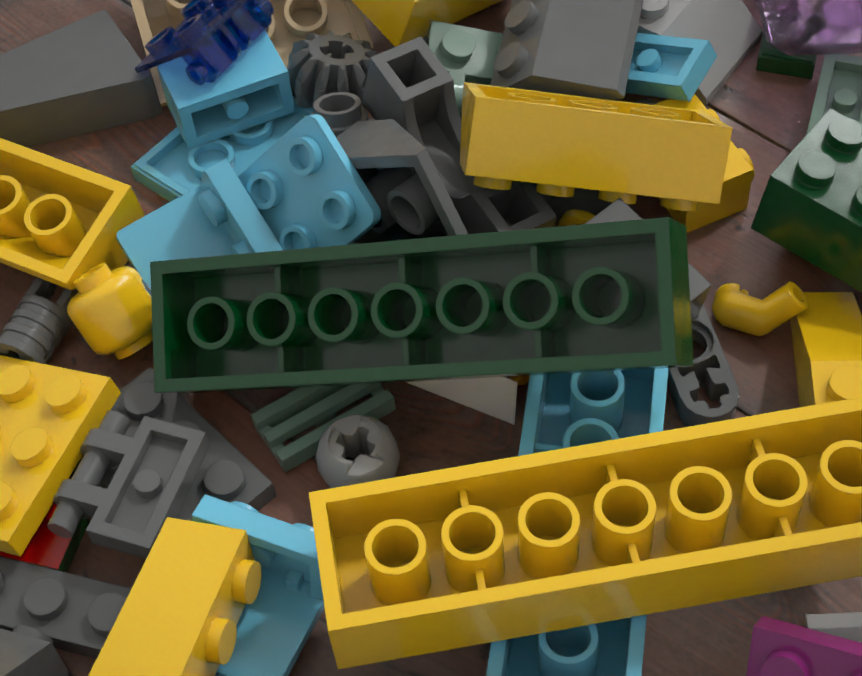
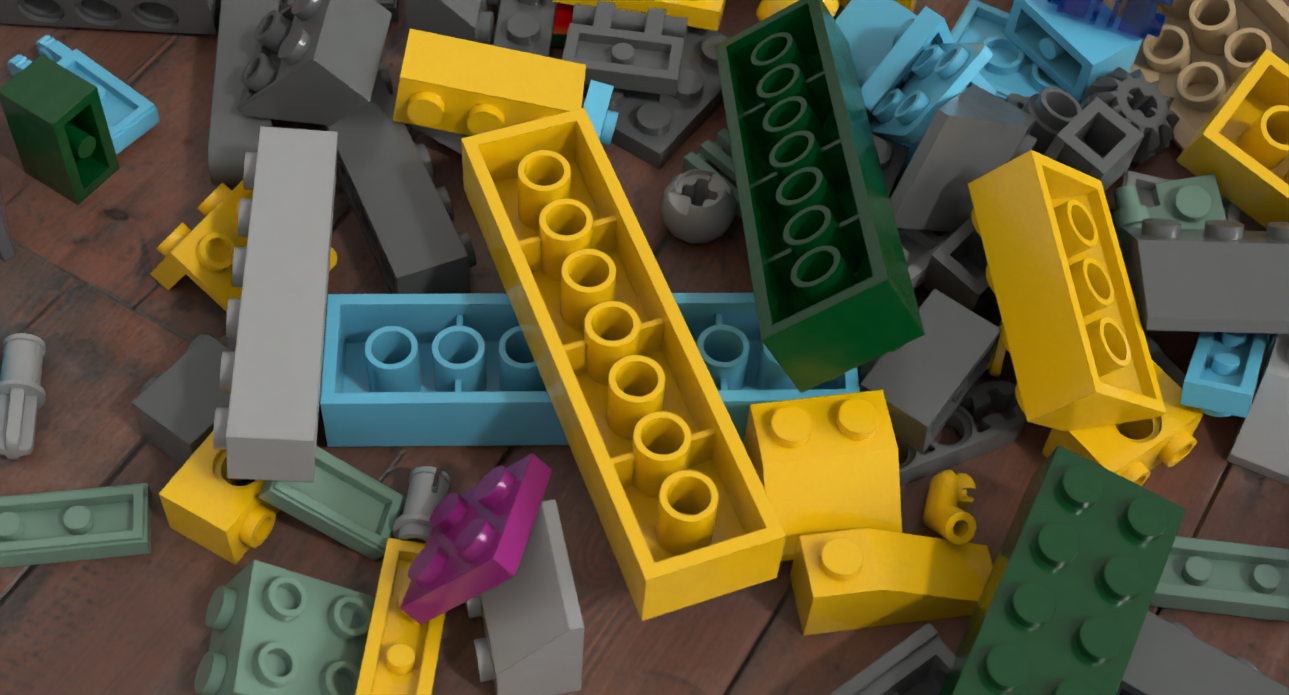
camera: 70 degrees right, 0 degrees up
(737, 369) = (827, 463): none -> yellow slope

